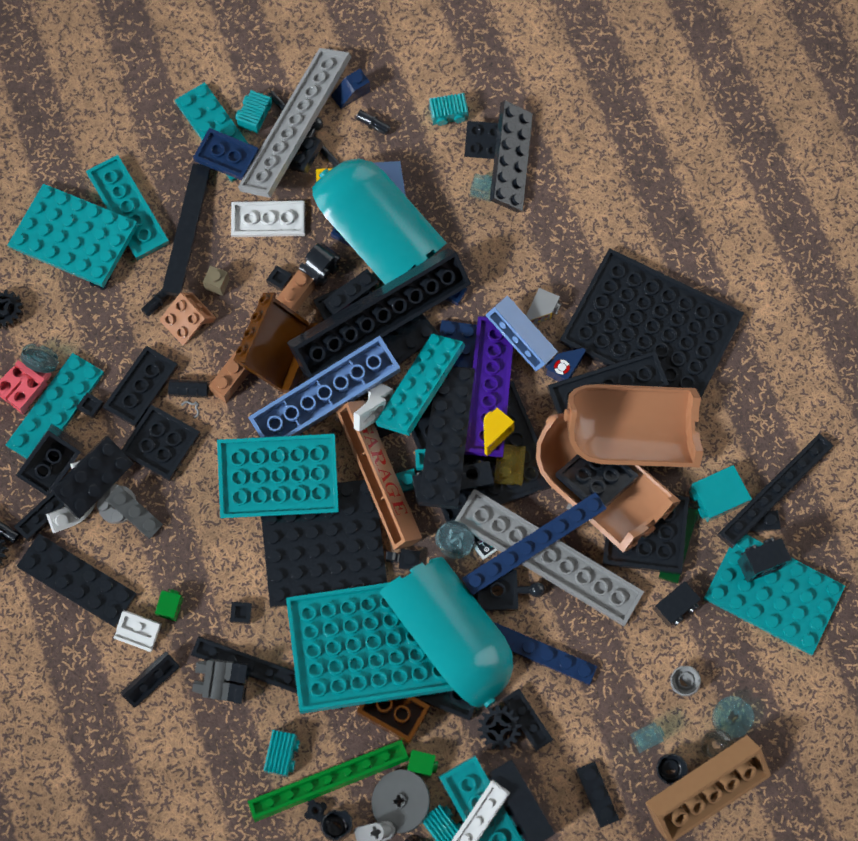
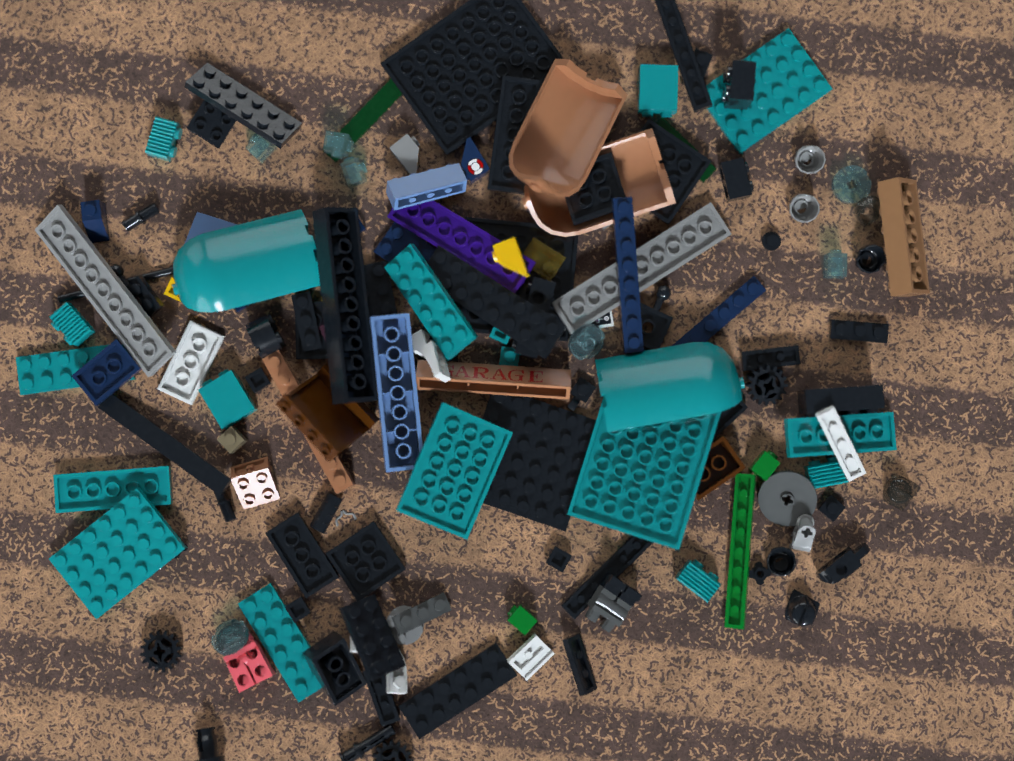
camera: 65 degrees left, 15 degrees up
(250, 261) = (227, 399): none -> teal brick
(502, 271) = (354, 171): none -> clear light blue brick
(519, 245) = (337, 144): none -> clear light blue brick
(551, 258) = (371, 113): none -> dark green tile
(638, 667) = (771, 241): none -> black plate
(738, 660) = (810, 152): none -> light grey hair

